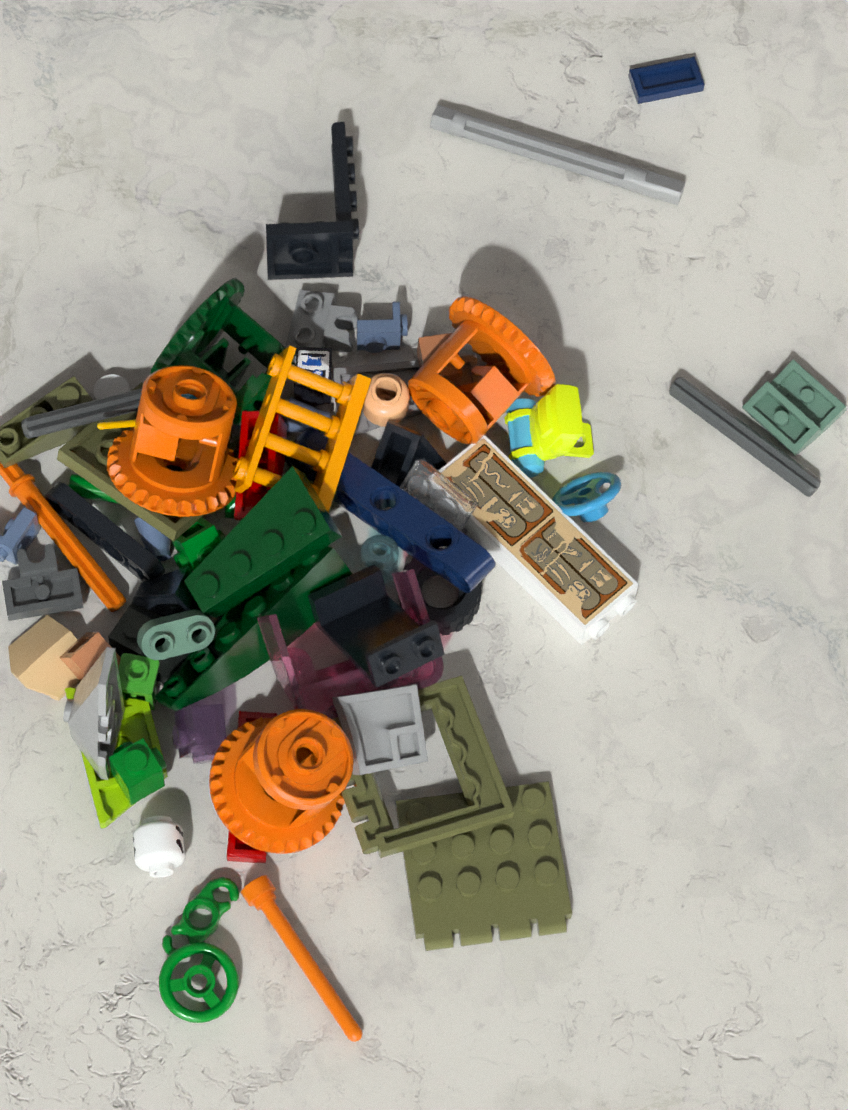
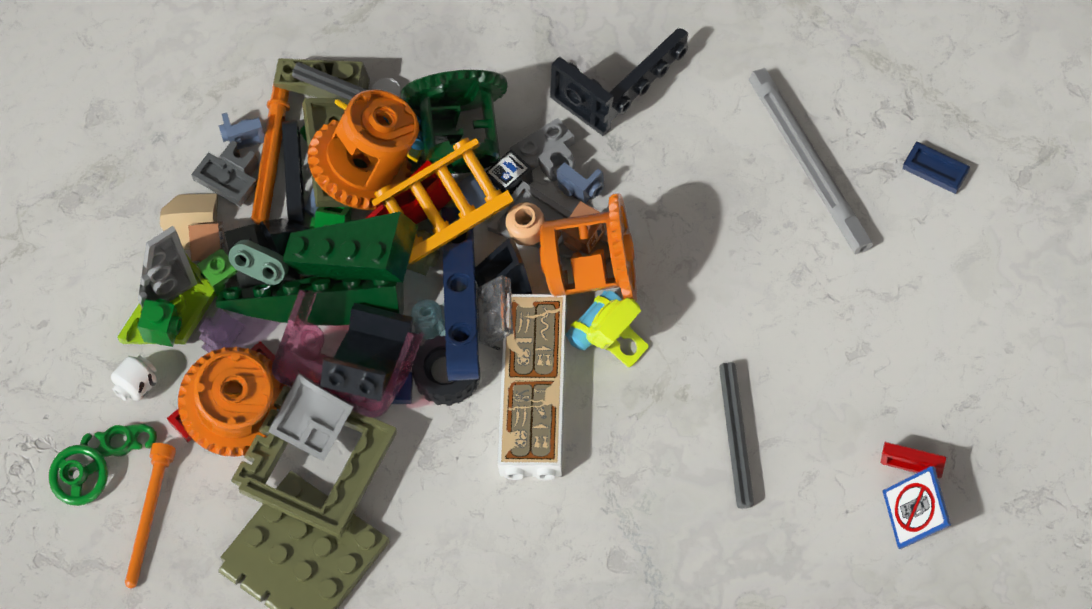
camera: 55 degrees right, 0 degrees up
(588, 501) = (592, 387): dark azure piece -> none
(794, 408) = (788, 444): sand green slope -> none

